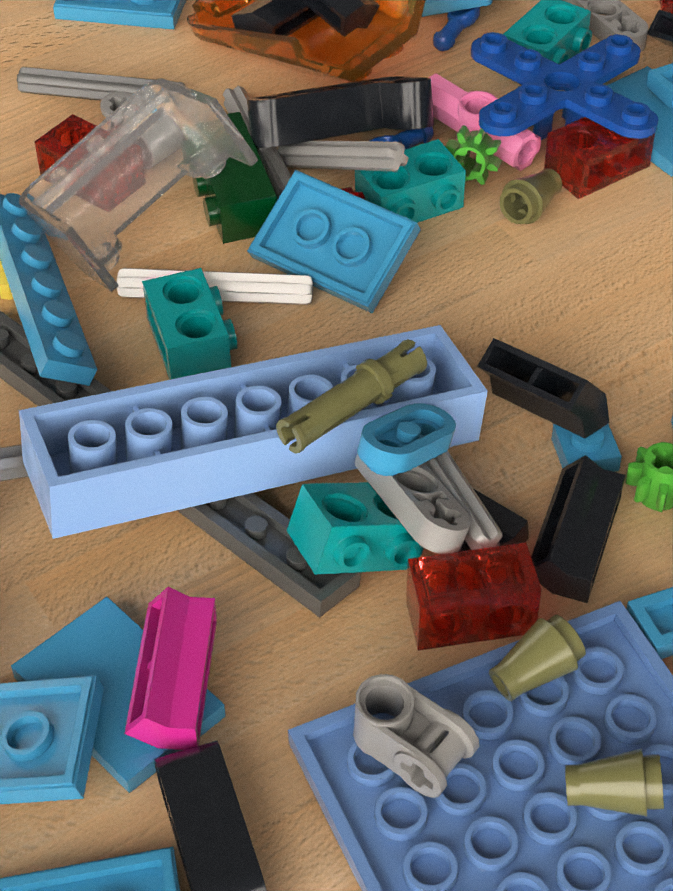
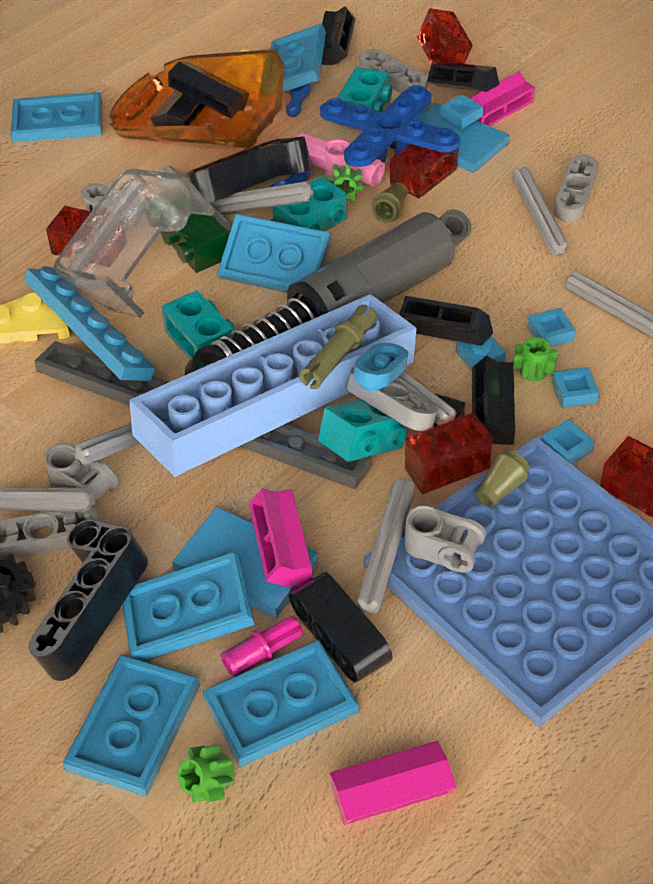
camera: 15 degrees left, 0 degrees up
(76, 84) = (58, 184): axle -> none
(84, 833) = (260, 646): none -> dark pink axle
(231, 285) = (222, 298): white axle -> none
(319, 726) = (386, 546): none -> light grey axle
(463, 290) = (377, 268): none -> dark grey piece
(617, 783) = (574, 536): olive cone -> none

